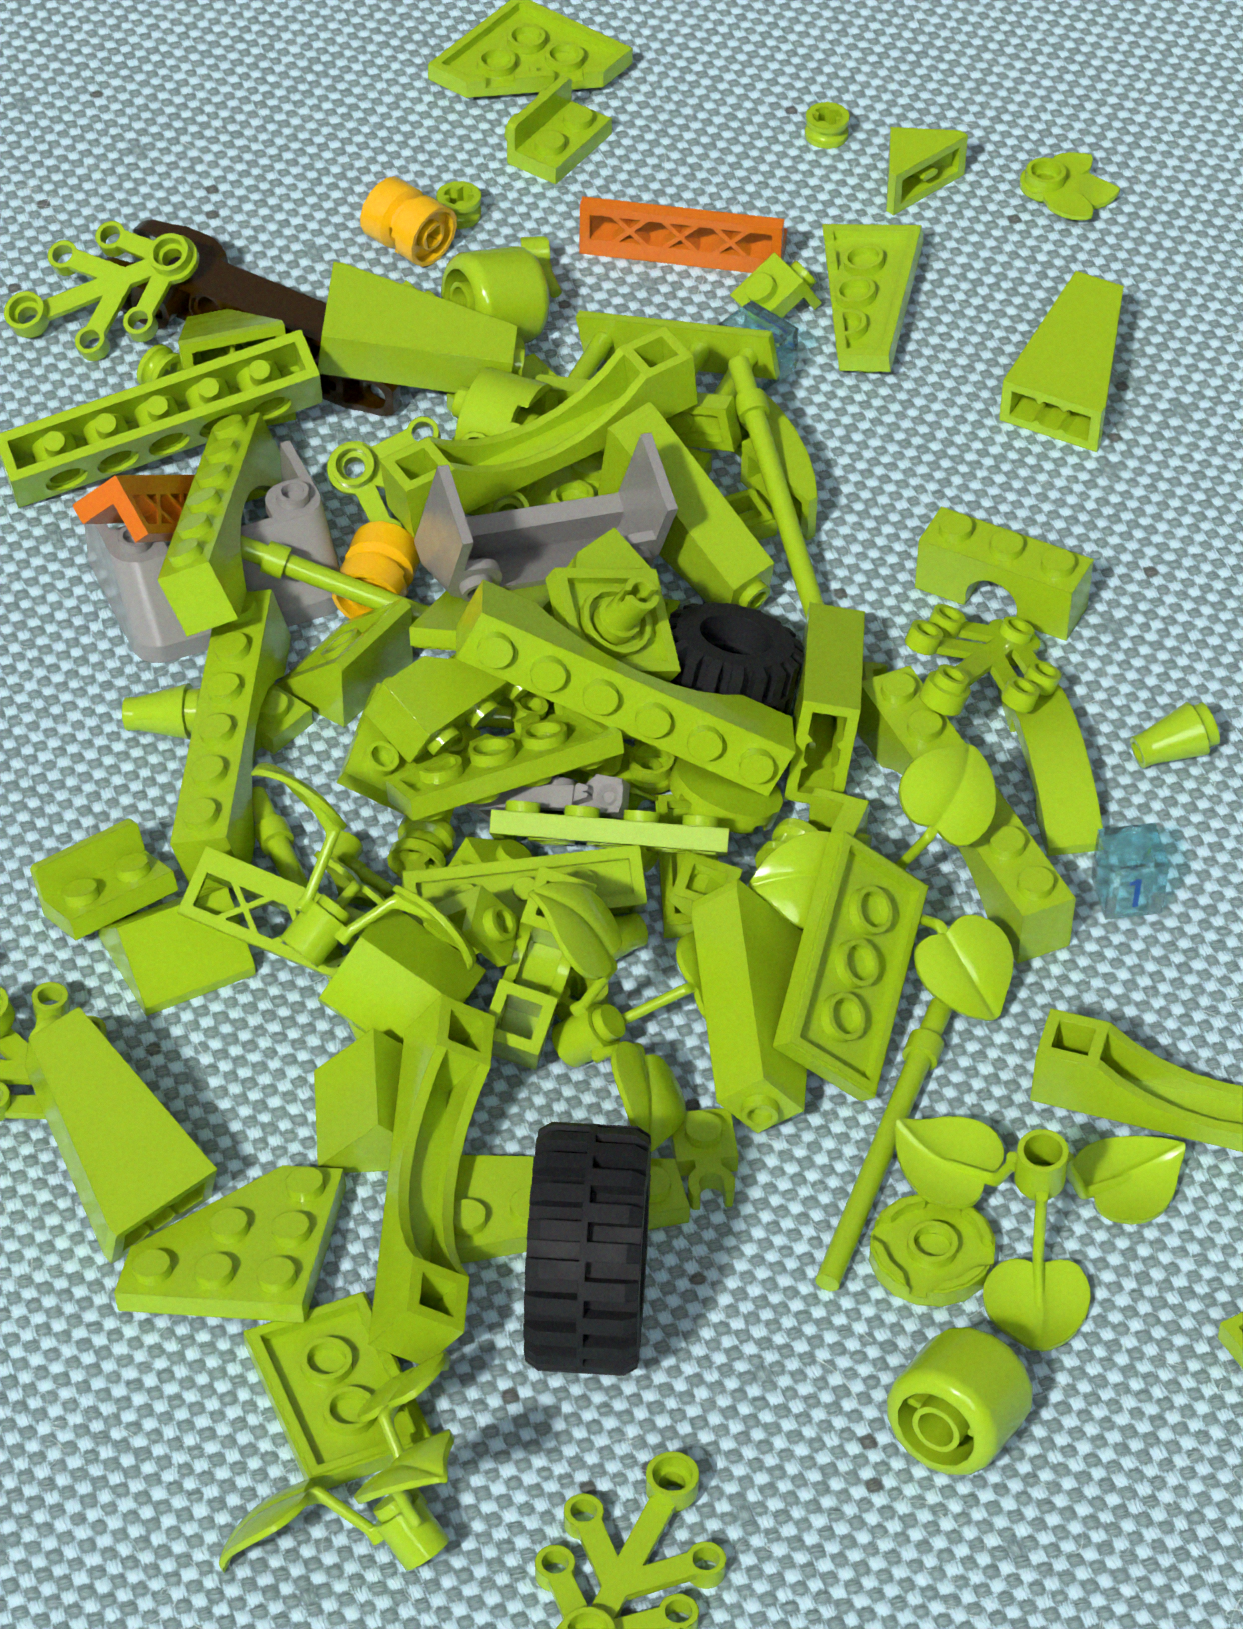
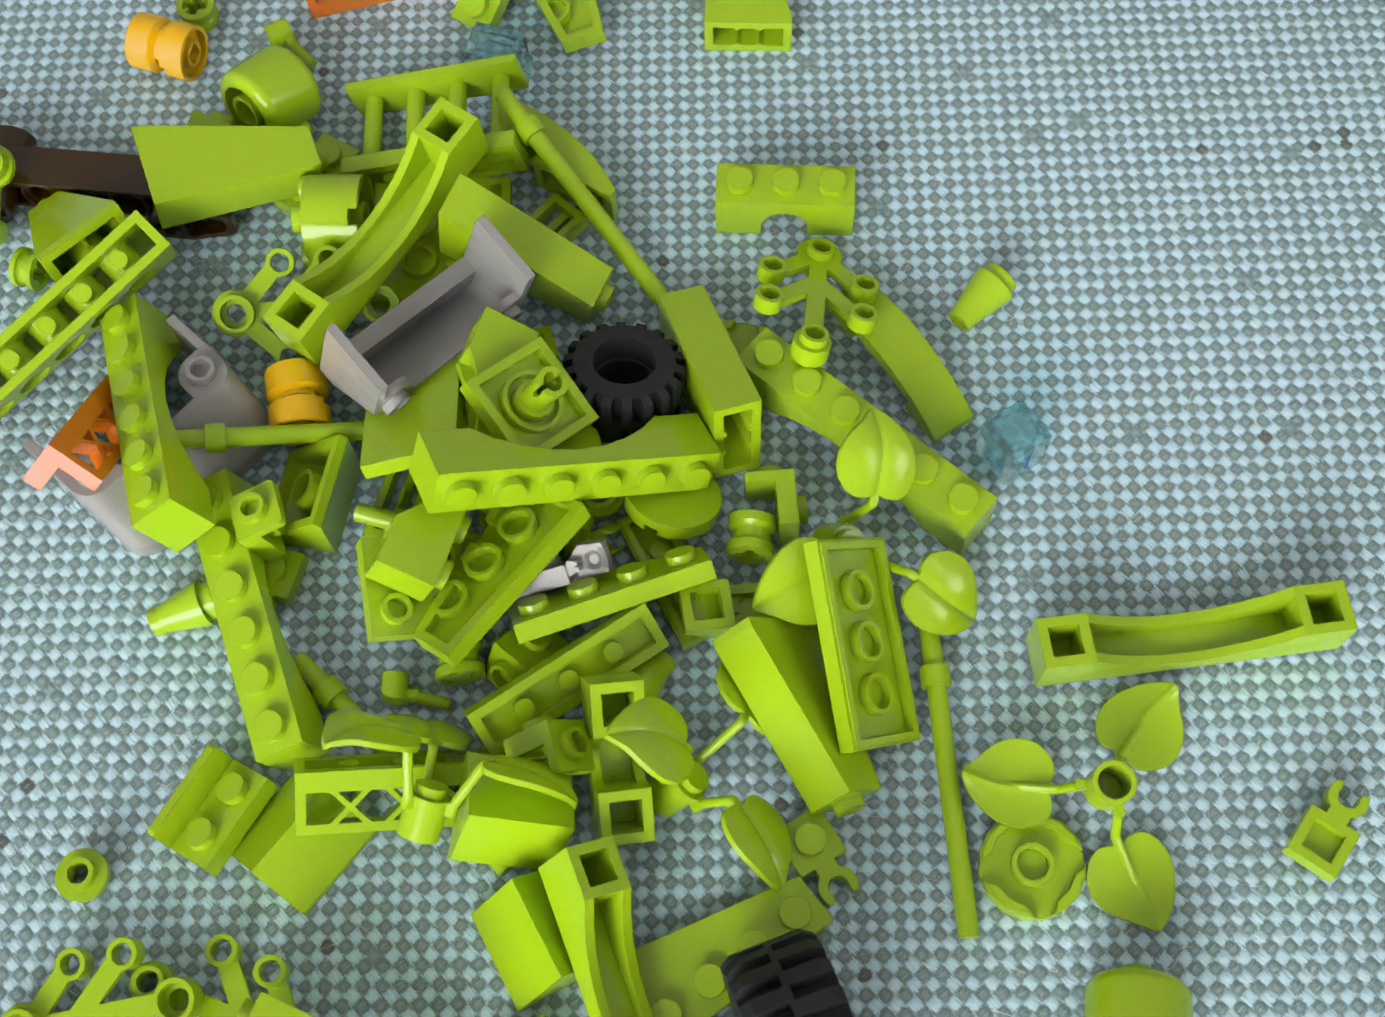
camera: 20 degrees left, 20 degrees up
(281, 644) = (260, 520): none -> lime bracket

